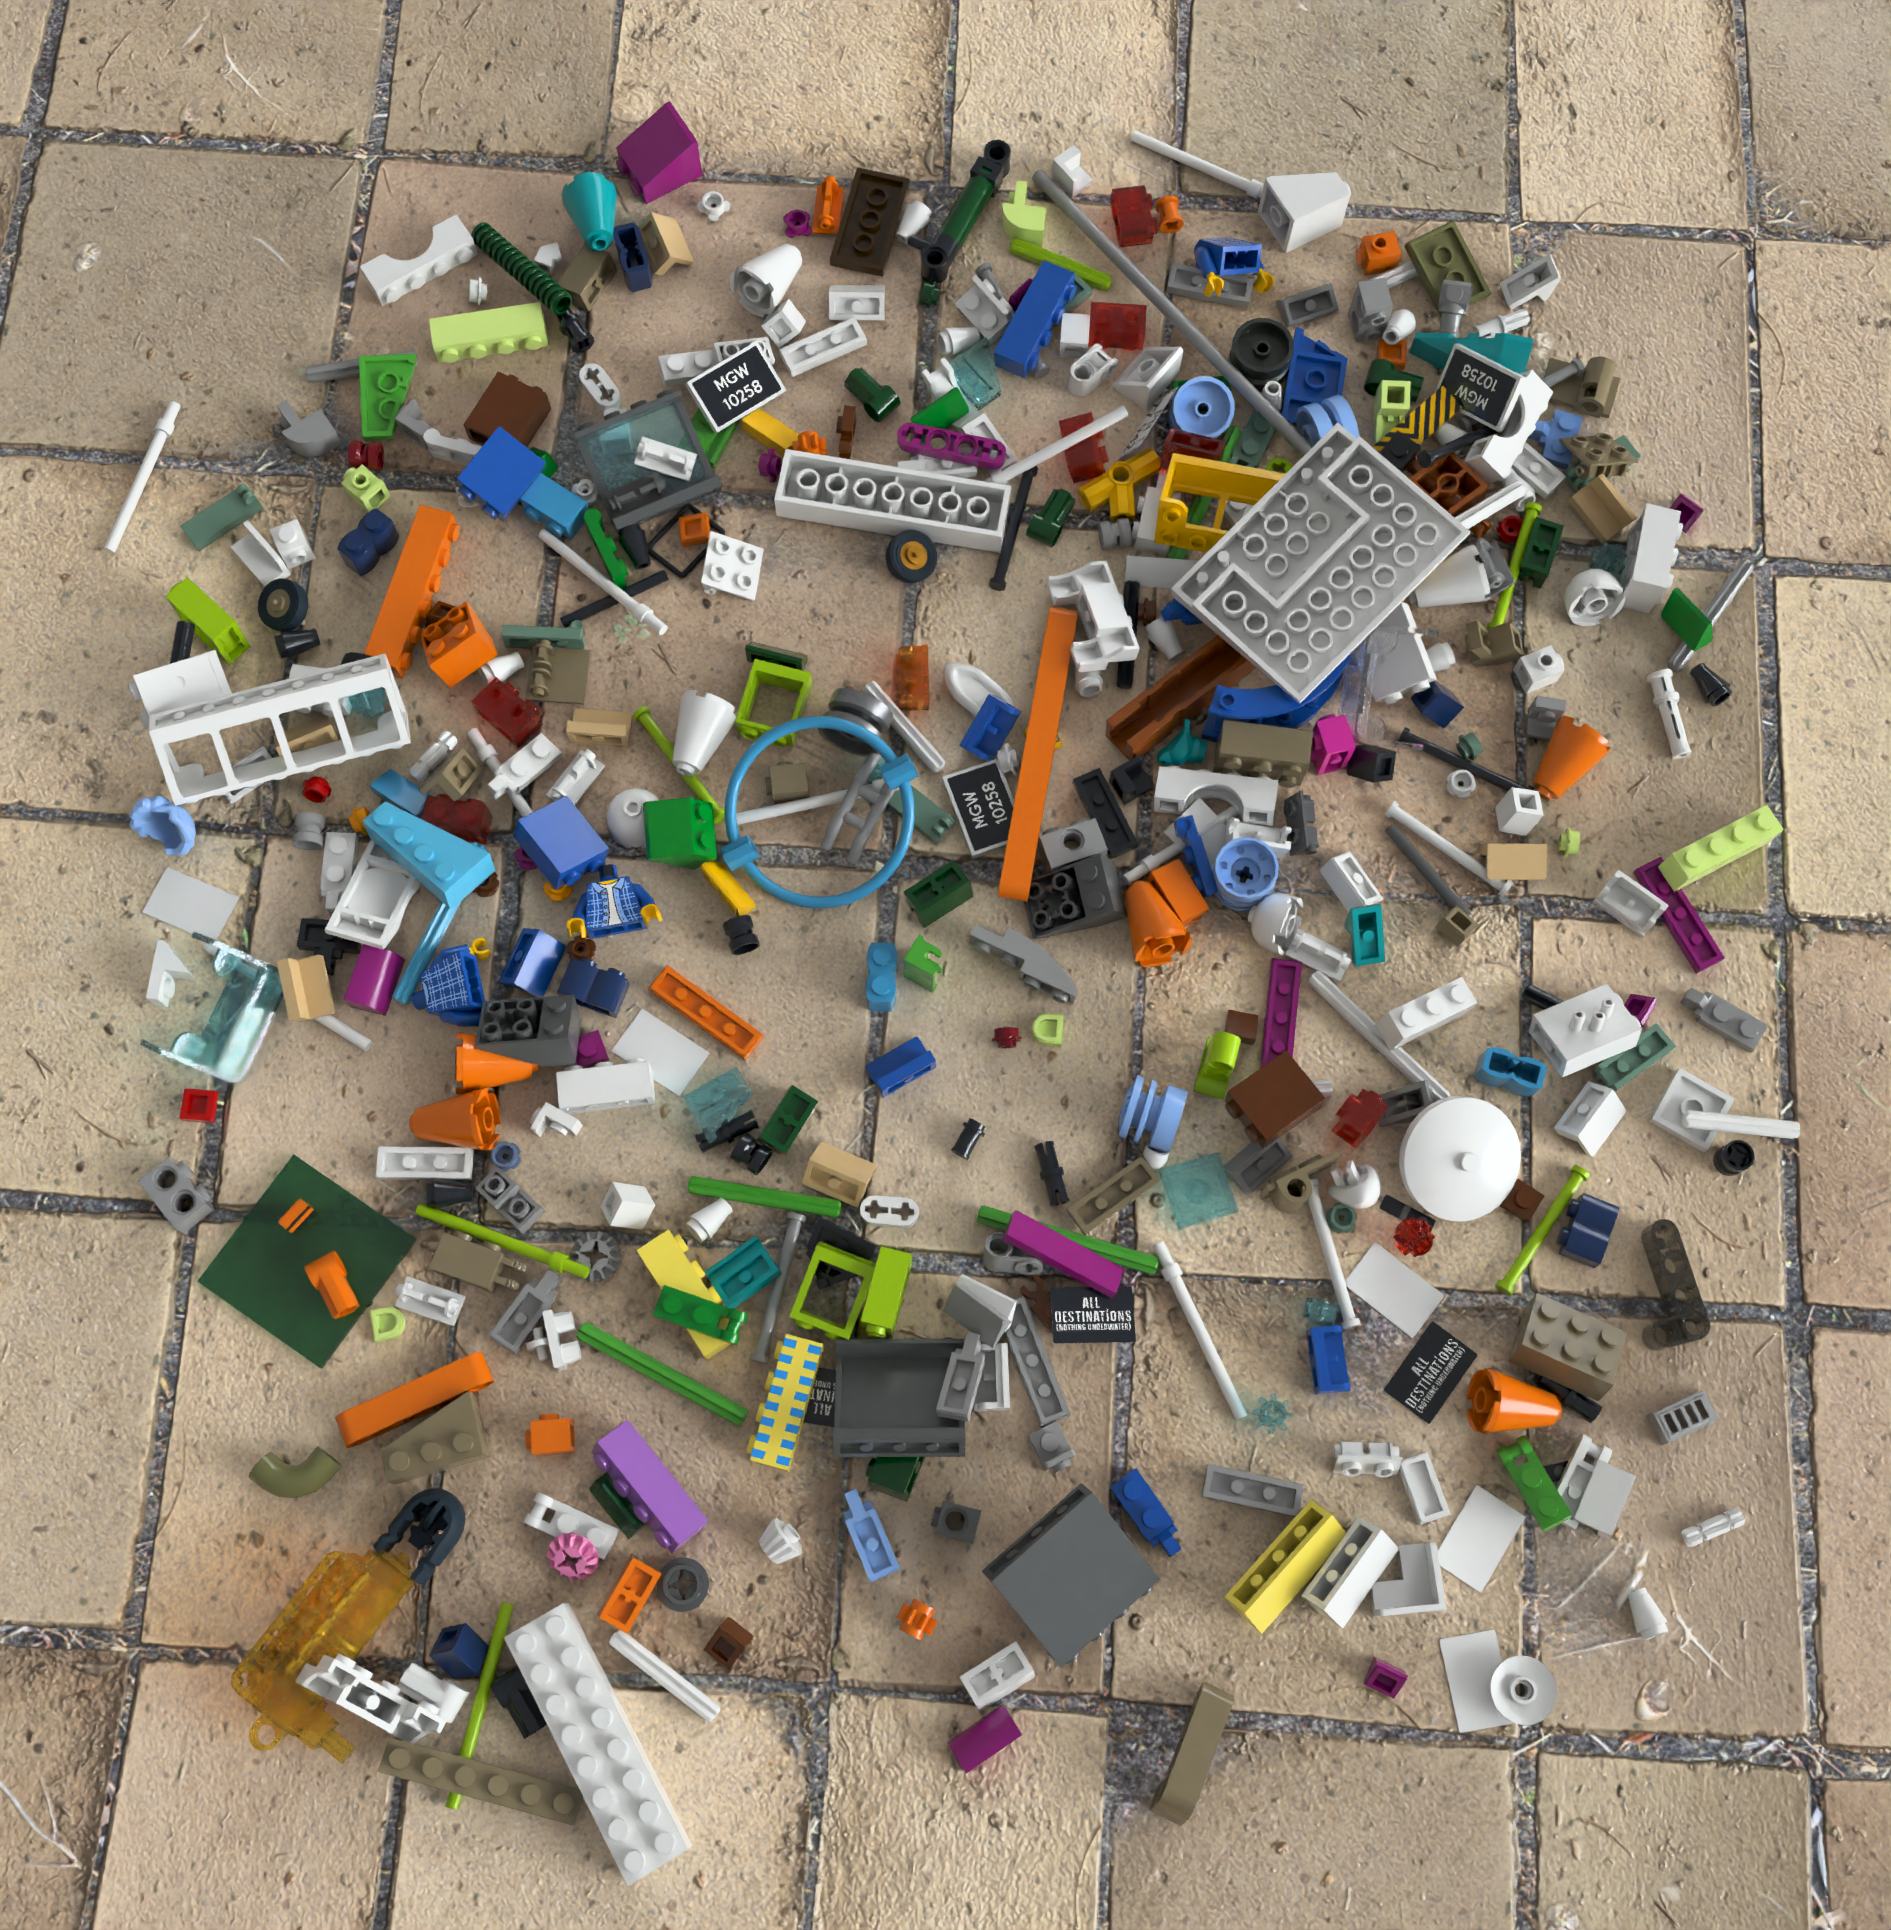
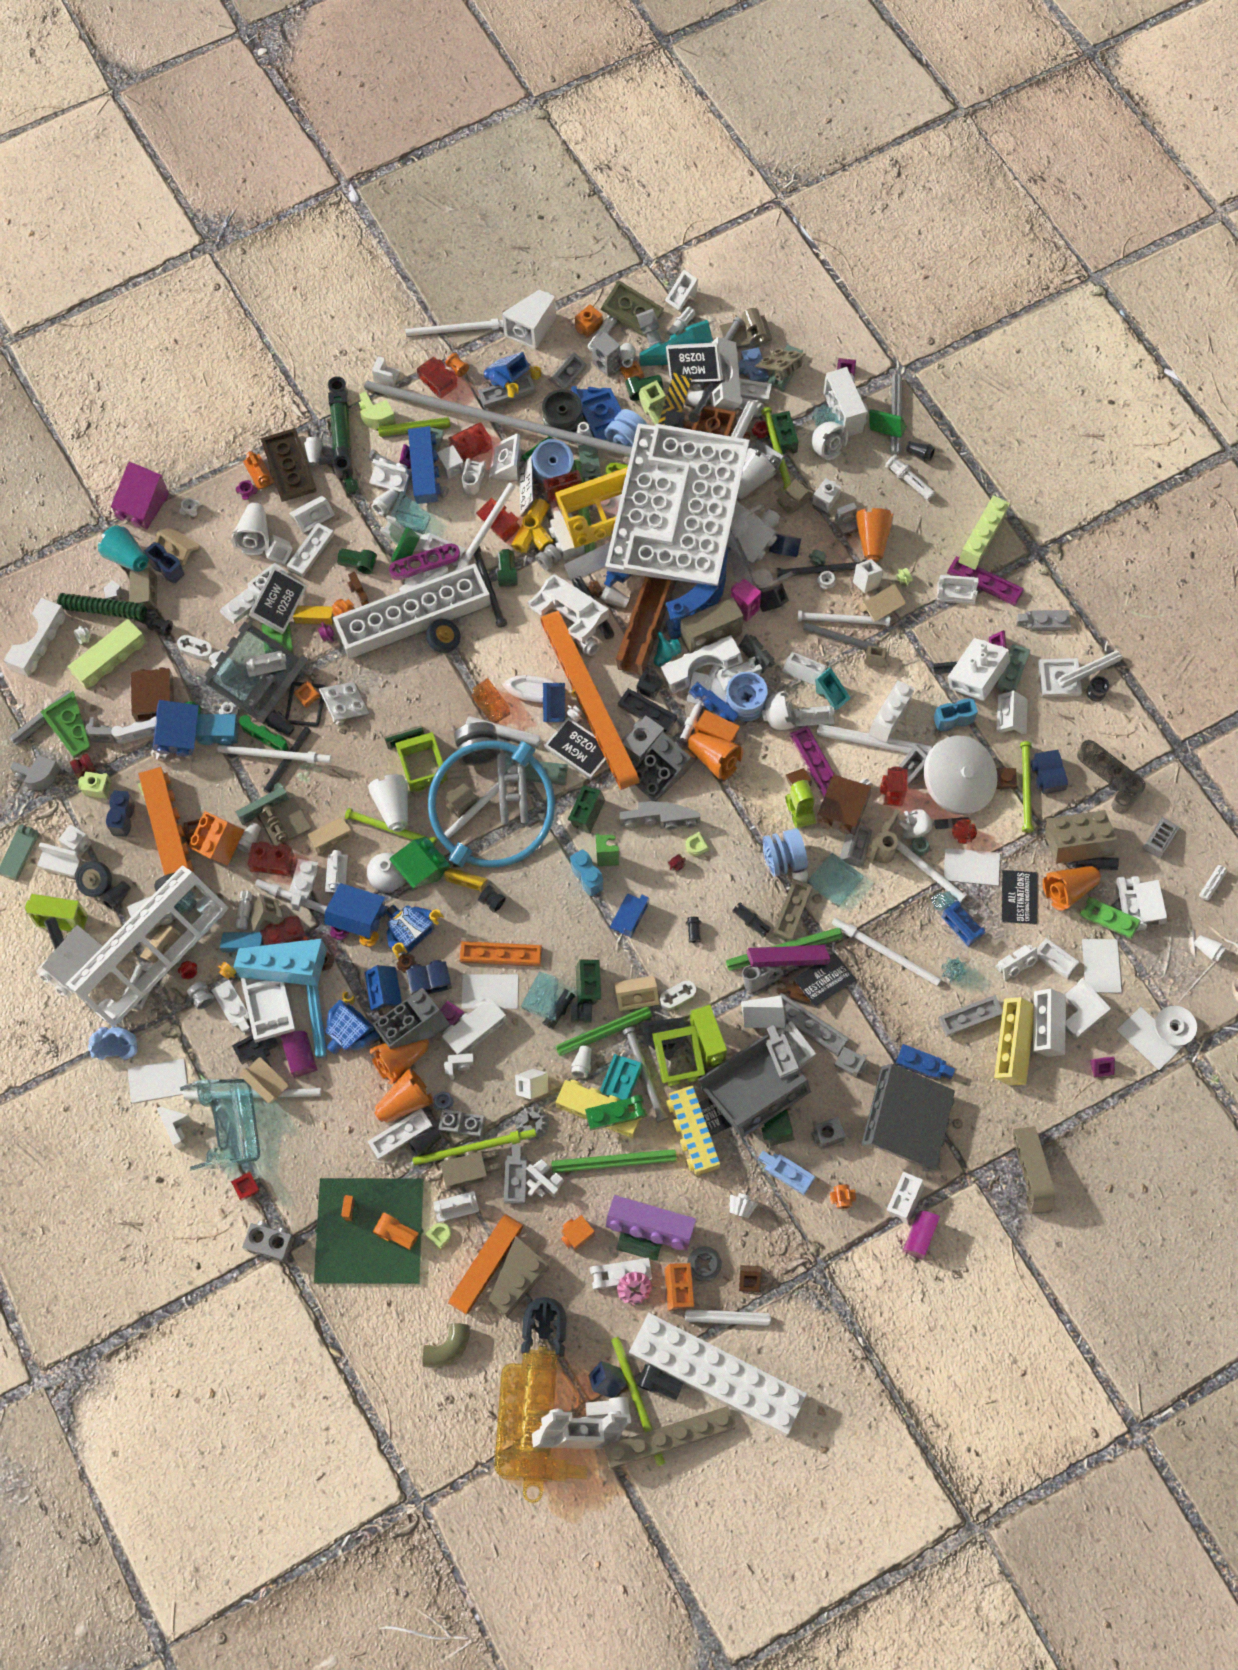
camera: 30 degrees left, 5 degrees down
(1602, 508) = (802, 390): tan panel -> none

